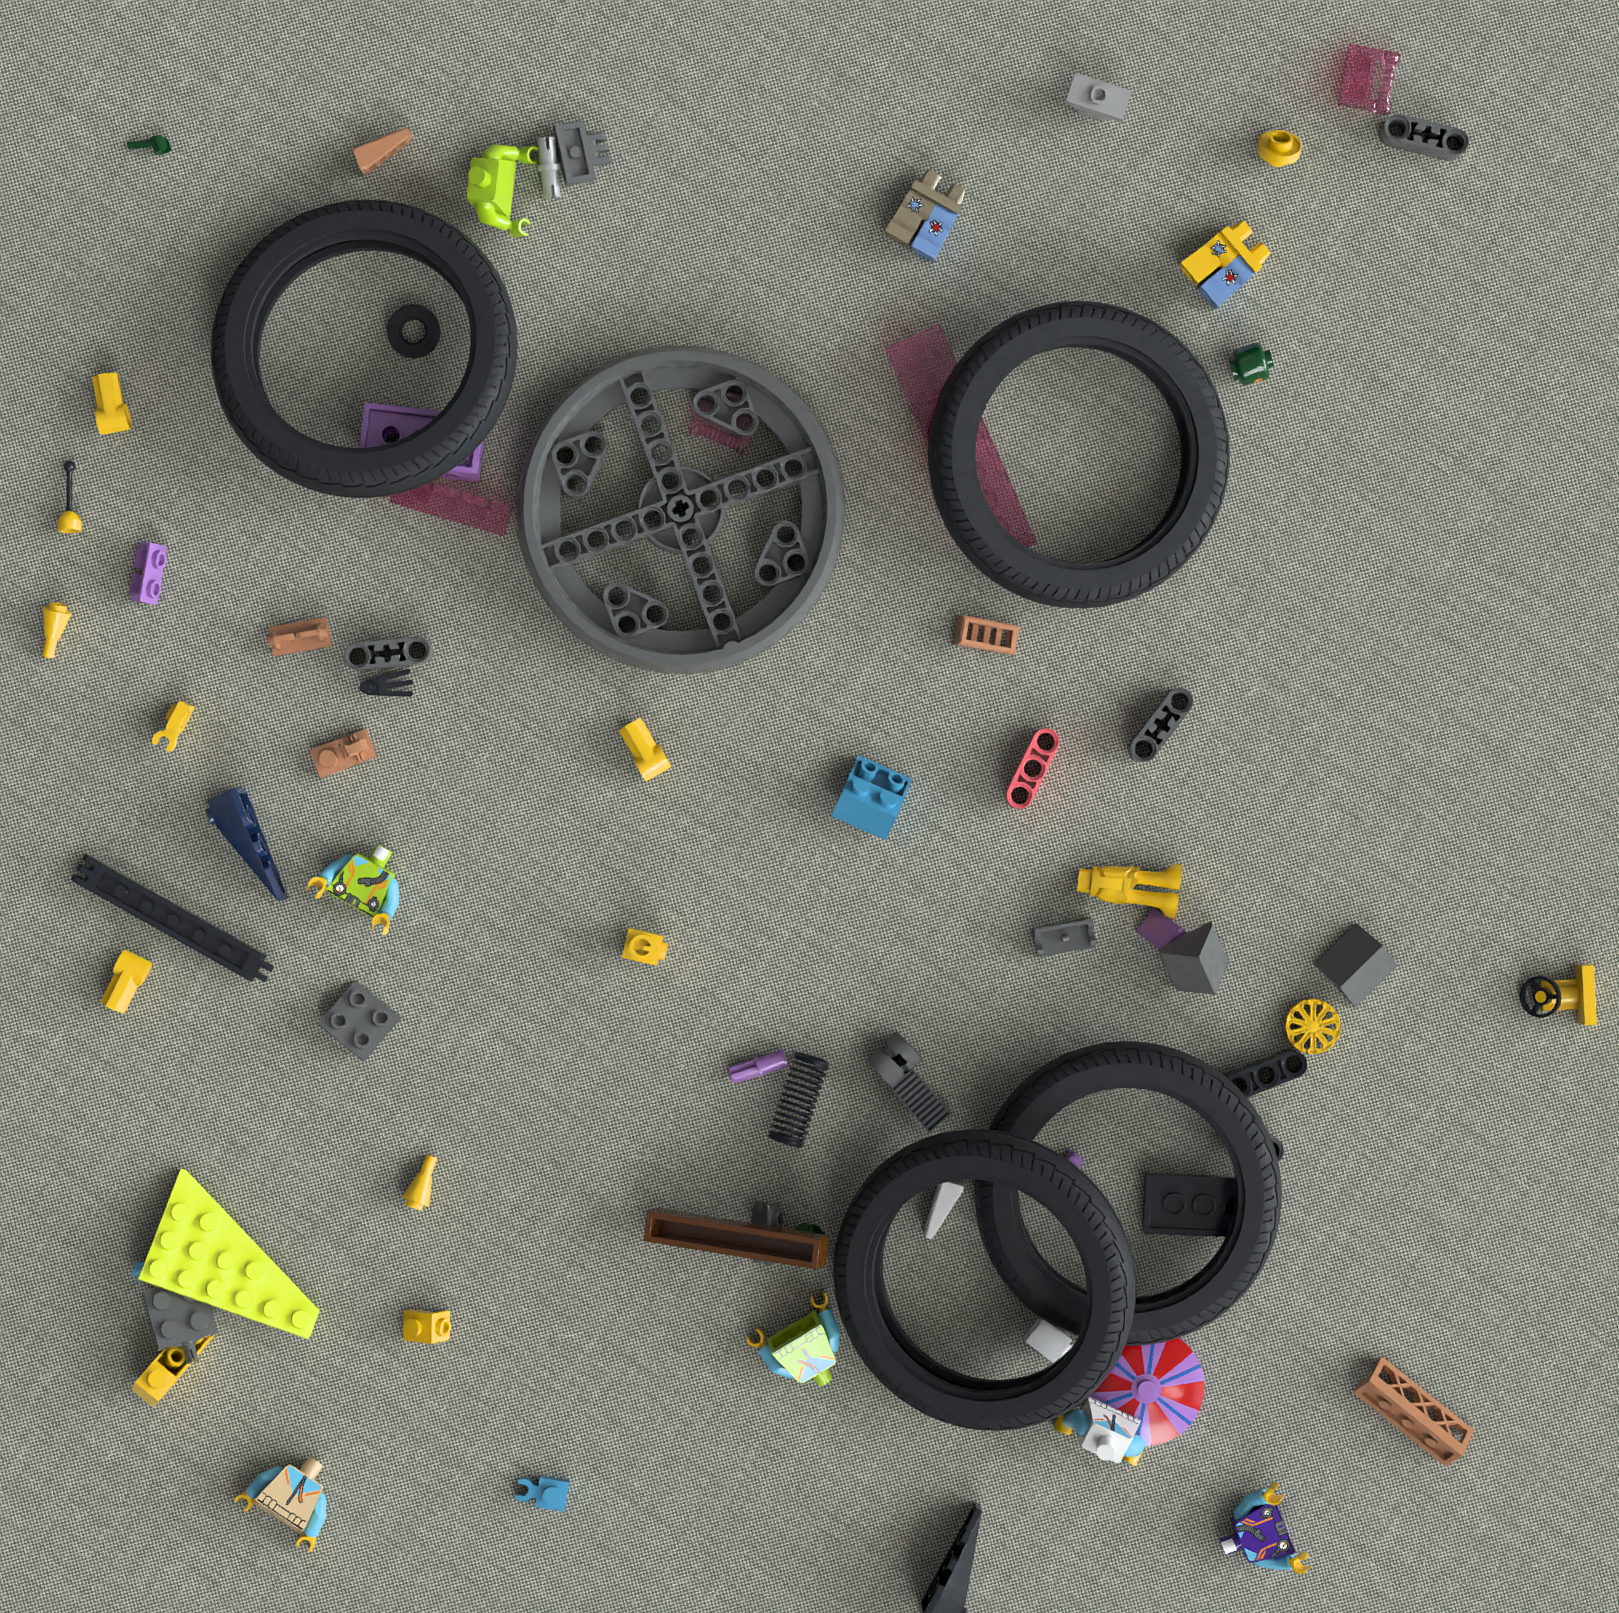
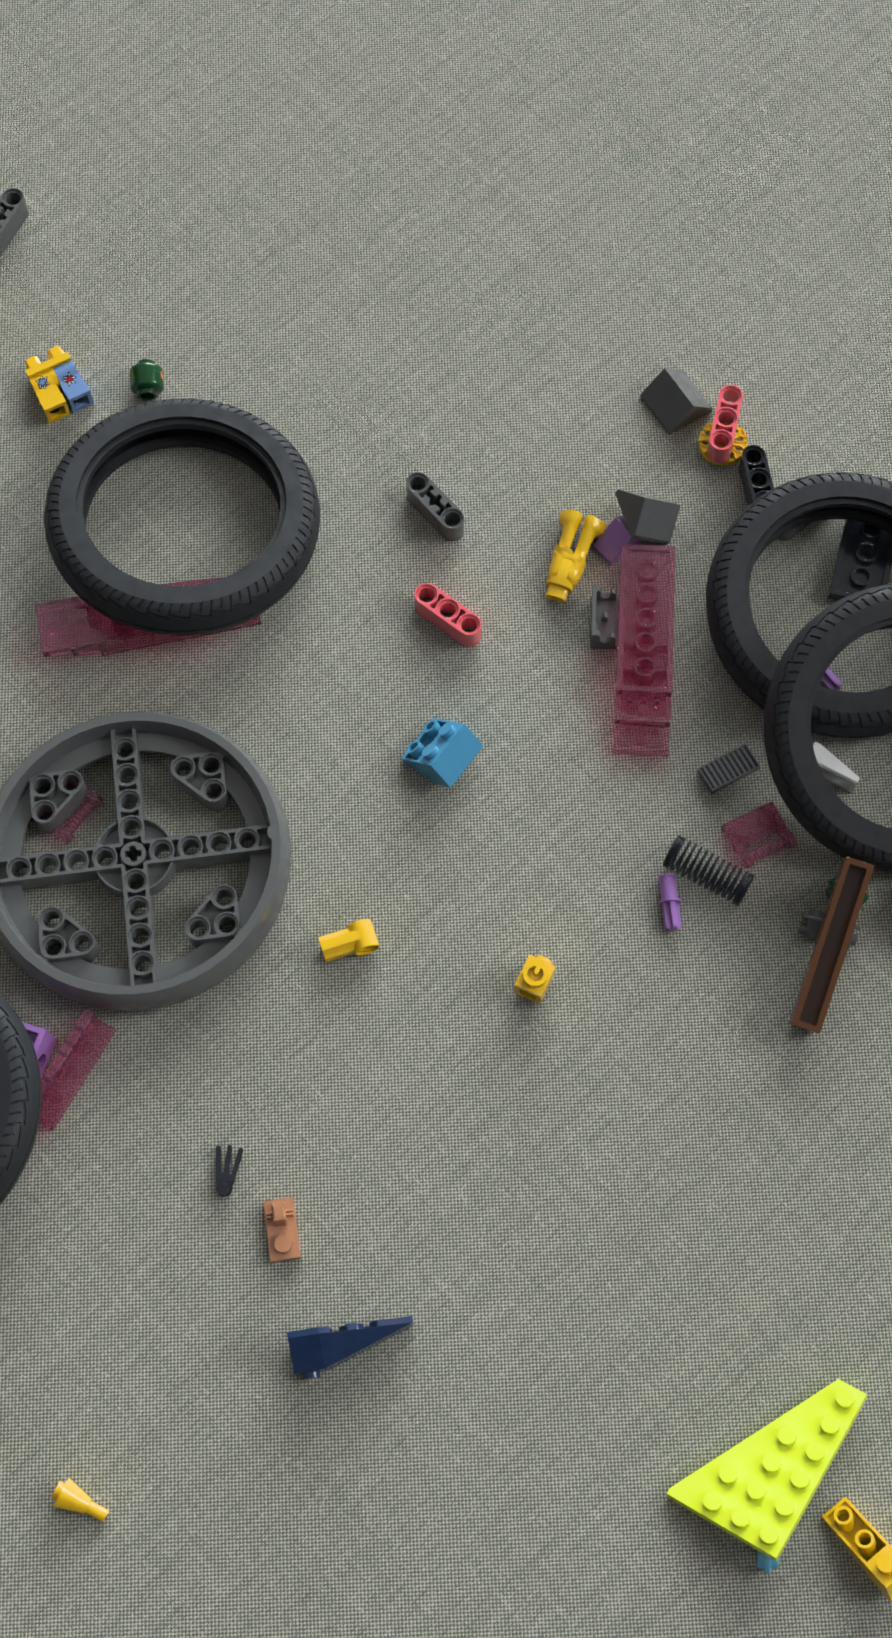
camera: 75 degrees left, 20 degrees down
(129, 973) = (454, 1503): yellow piece -> none
(151, 559) = (38, 1380): medium lavender hinge -> none
(172, 919) = (405, 1444): black hinge -> none
(177, 719) = (204, 1389): yellow plate -> none
(178, 1321) = (826, 1530): dark grey plate -> none
(299, 636) = (156, 1246): nougat hinge -> none
(359, 1021) = (551, 1271): dark grey hinge -> none
(362, 884) = (416, 1235): torso -> none
(381, 646) = (203, 1168): dark grey beam -> none
(419, 1190) = (733, 1249): yellow cone -> none
(426, 1326) = (871, 1272): yellow bracket -> none
(860, 1137) = (754, 827): none -> clear pink plate
(886, 1066) = (686, 779): dark grey wheel -> none
(961, 632) = (315, 647): nougat slope -> none
(1037, 987) = (644, 650): none -> clear pink slope
(1341, 1030) = (728, 414): none -> coral beam
(1564, 995) = (734, 244): yellow piece -> none

